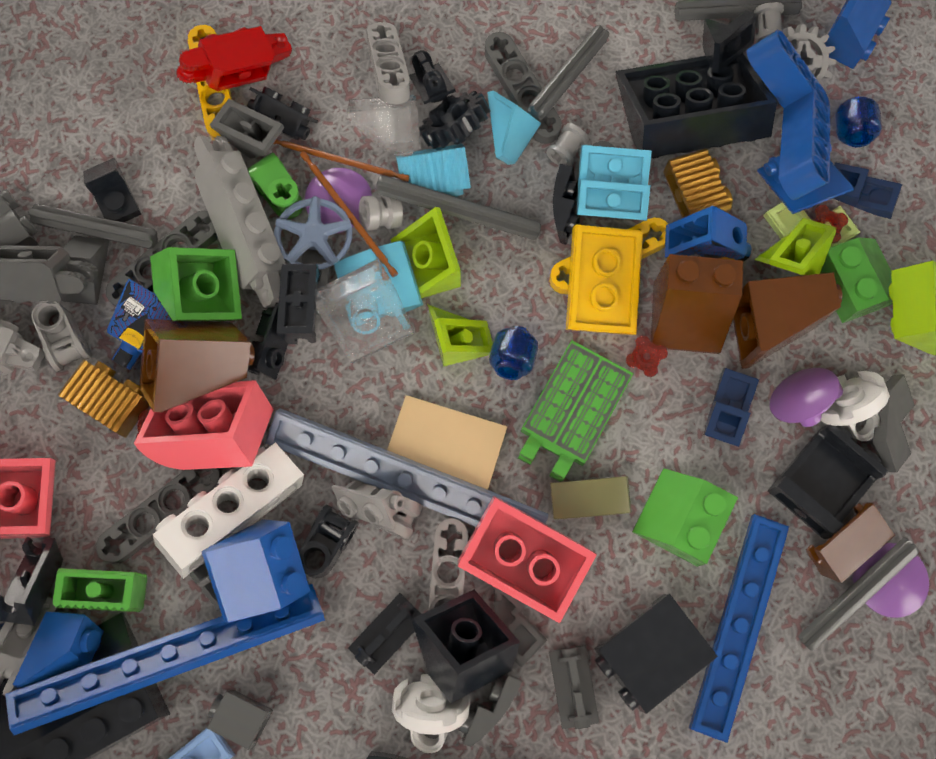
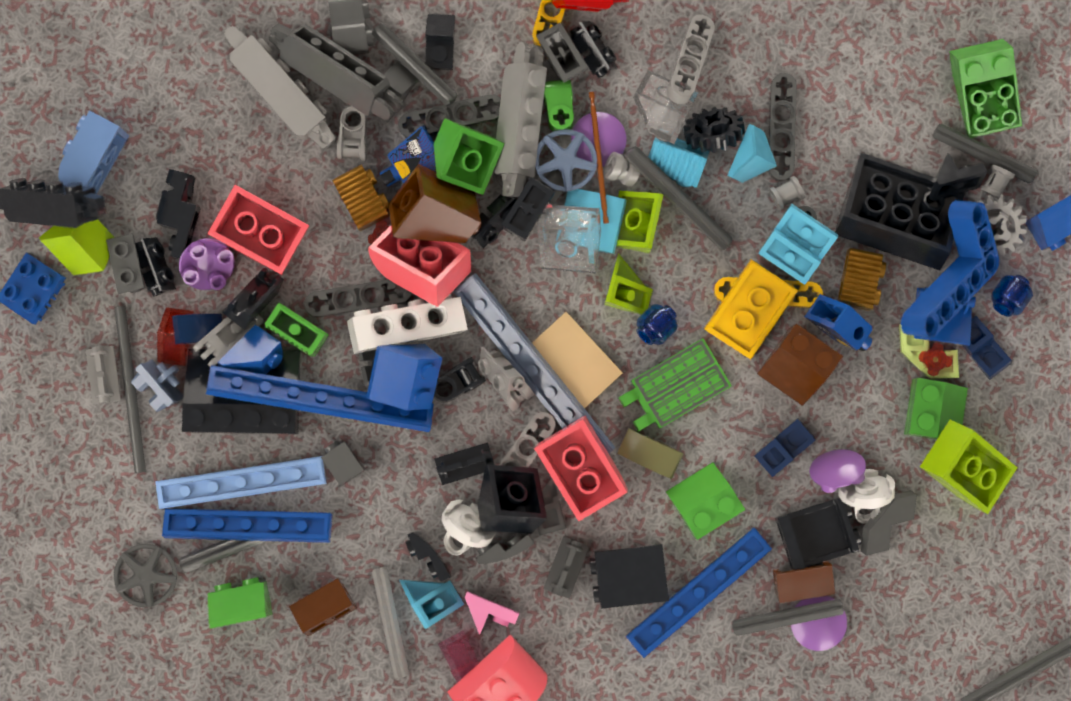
camera: 30 degrees right, 10 degrees up
(342, 160) = (617, 115): dark orange piece -> none
(429, 79) = (715, 86): black hinge -> none
(563, 202) = (752, 243): black slope -> none
(568, 72) = (822, 136): dark grey axle -> none
(656, 353) = (745, 386): clear red plate -> none
(782, 311) = (857, 404): reddish brown slope -> none
(801, 249) = (898, 369): lime slope -> none

